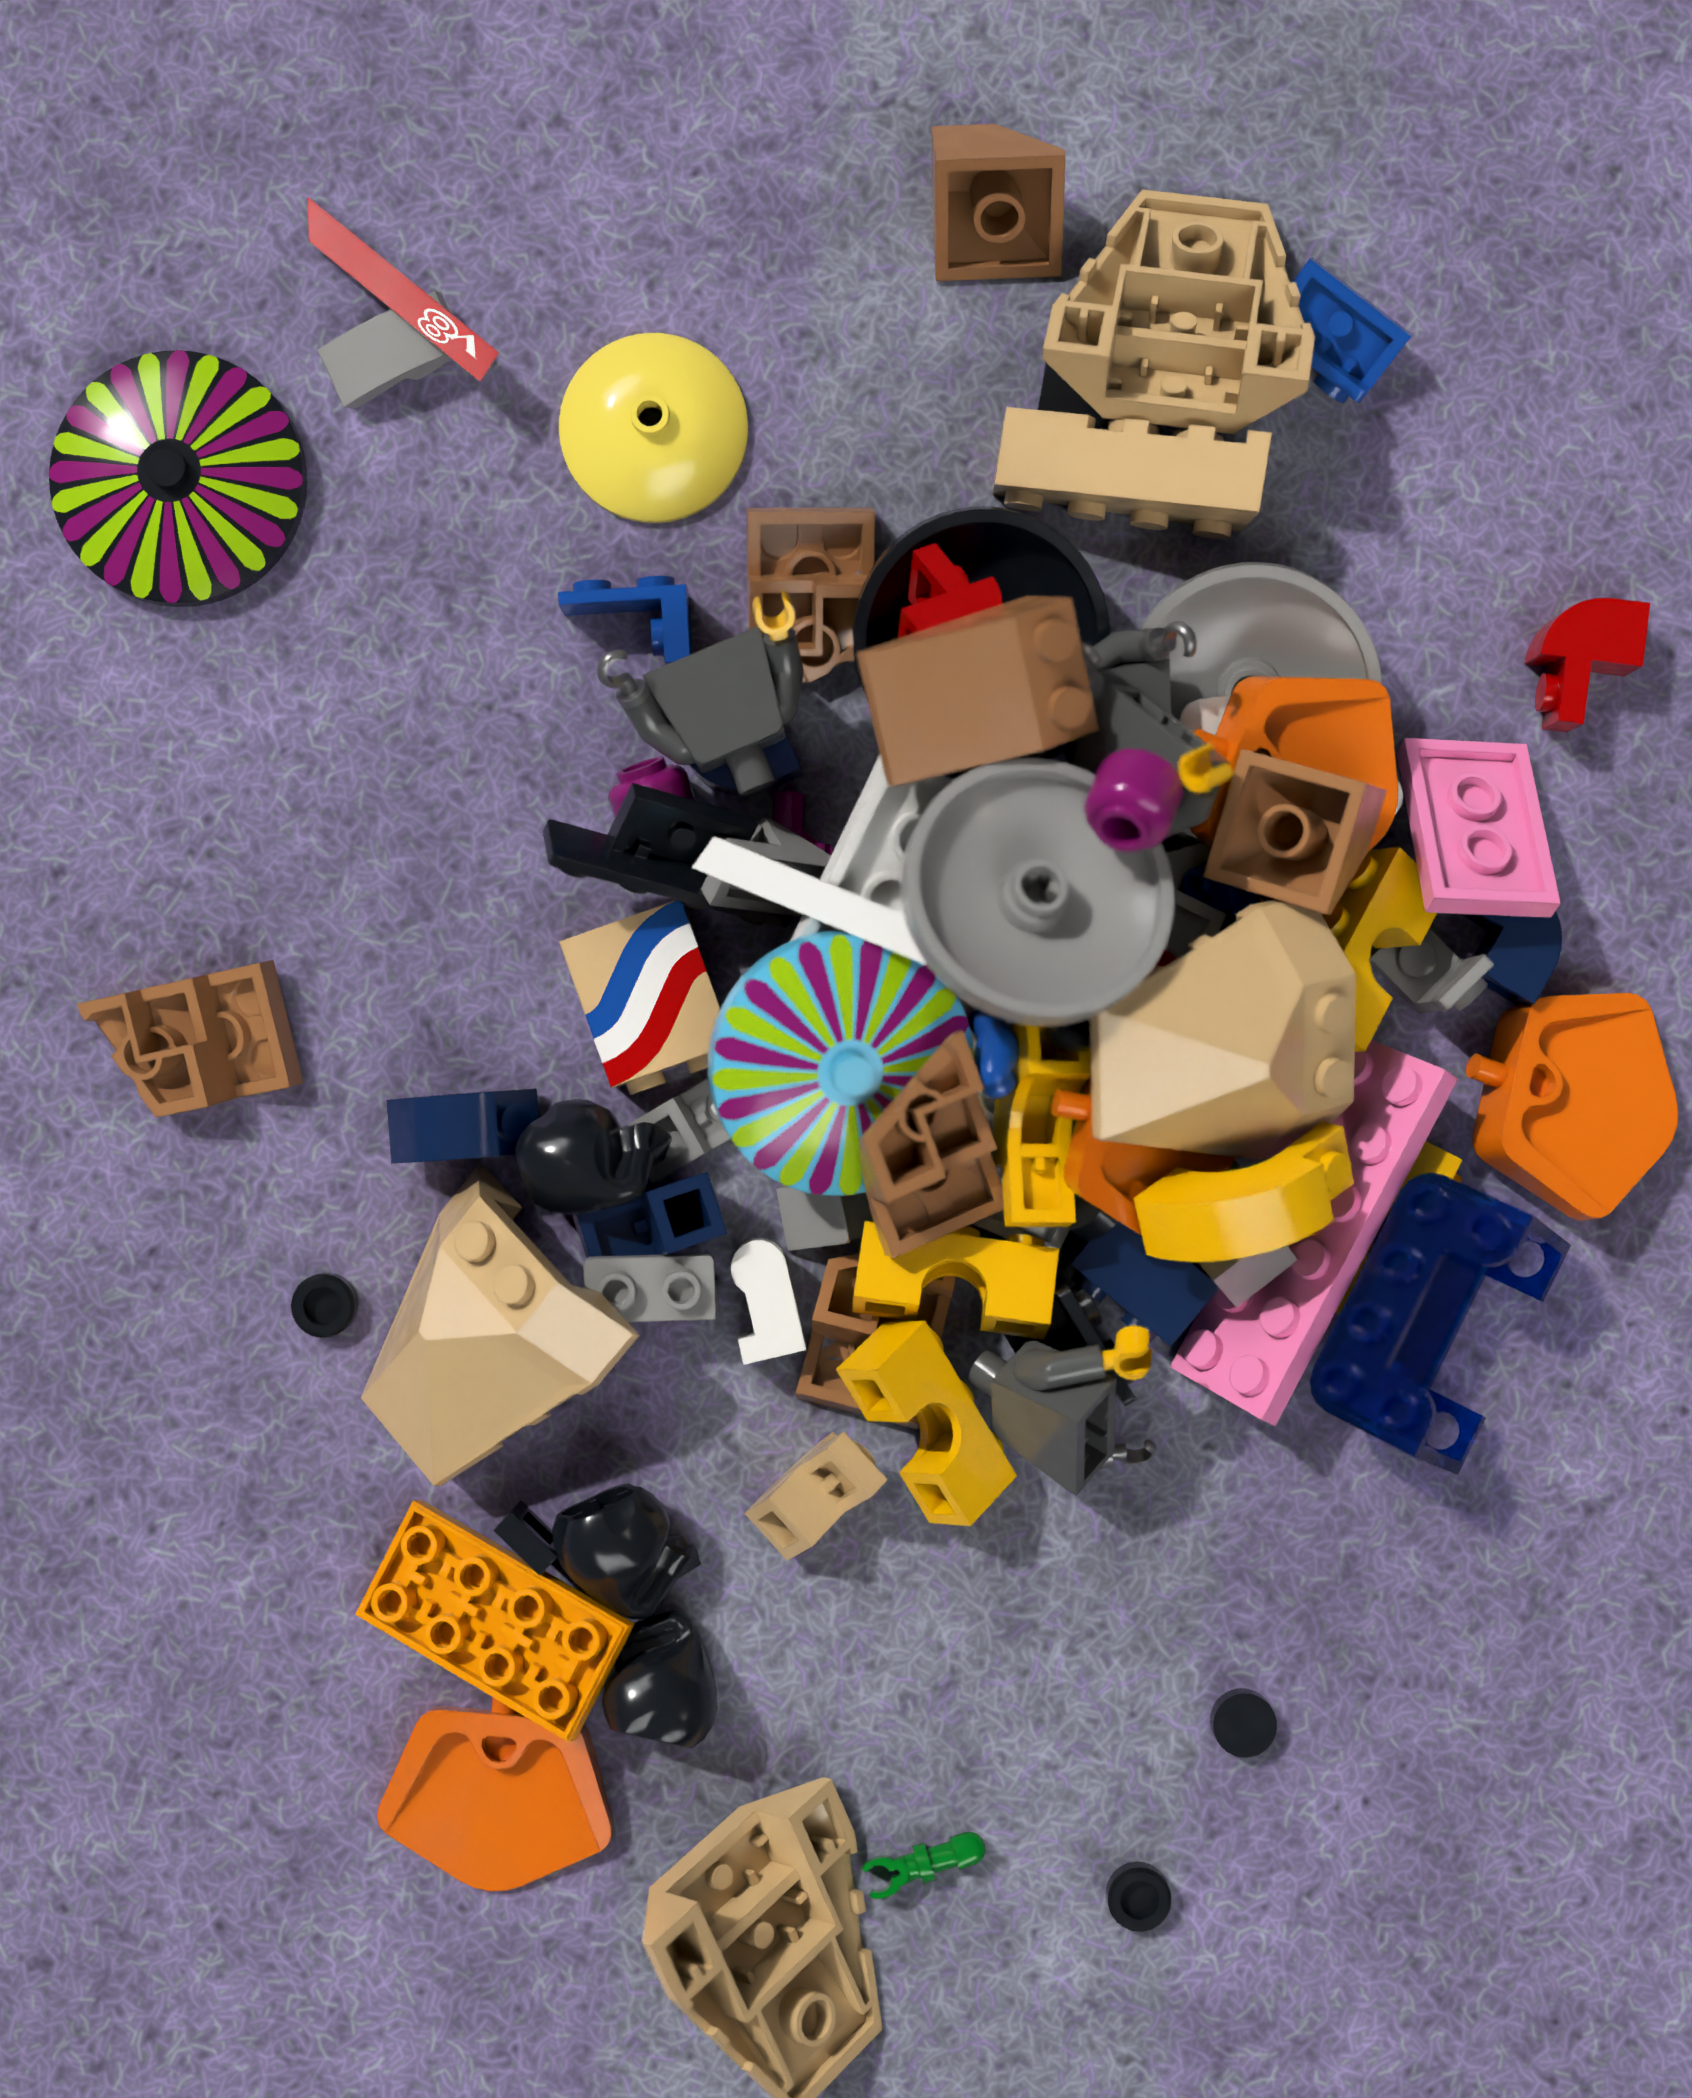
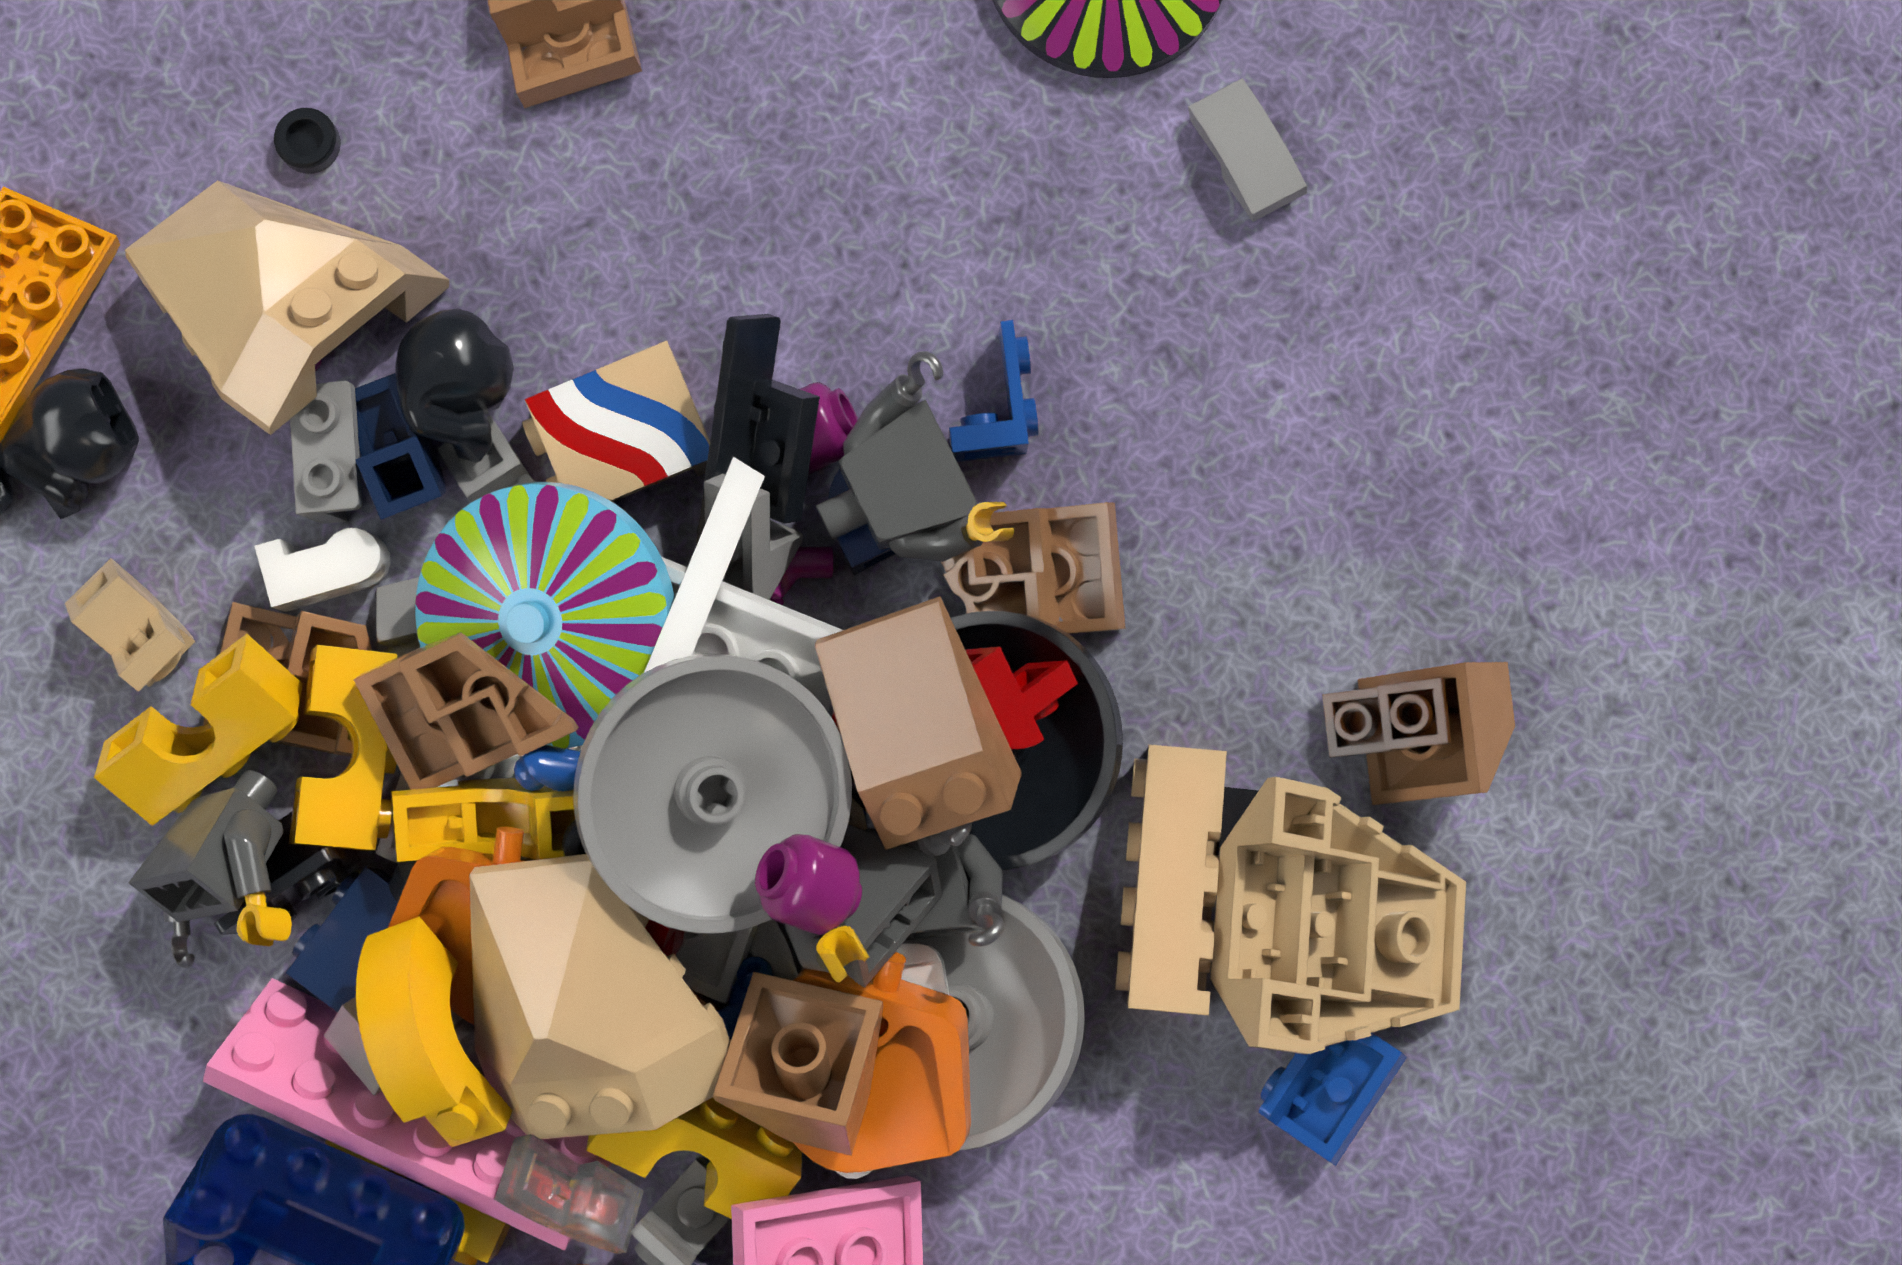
camera: 85 degrees right, 5 degrees down
(399, 293) = (1301, 151): sticker -> none
(459, 1125) = (482, 257): dark blue brick -> none
(528, 1537) = (81, 345): black tile -> none
(662, 468) = (1182, 450): light yellow dish -> none
(981, 247) = (1387, 718): none -> slope
(1409, 1068) = (569, 1197): none -> clear slope

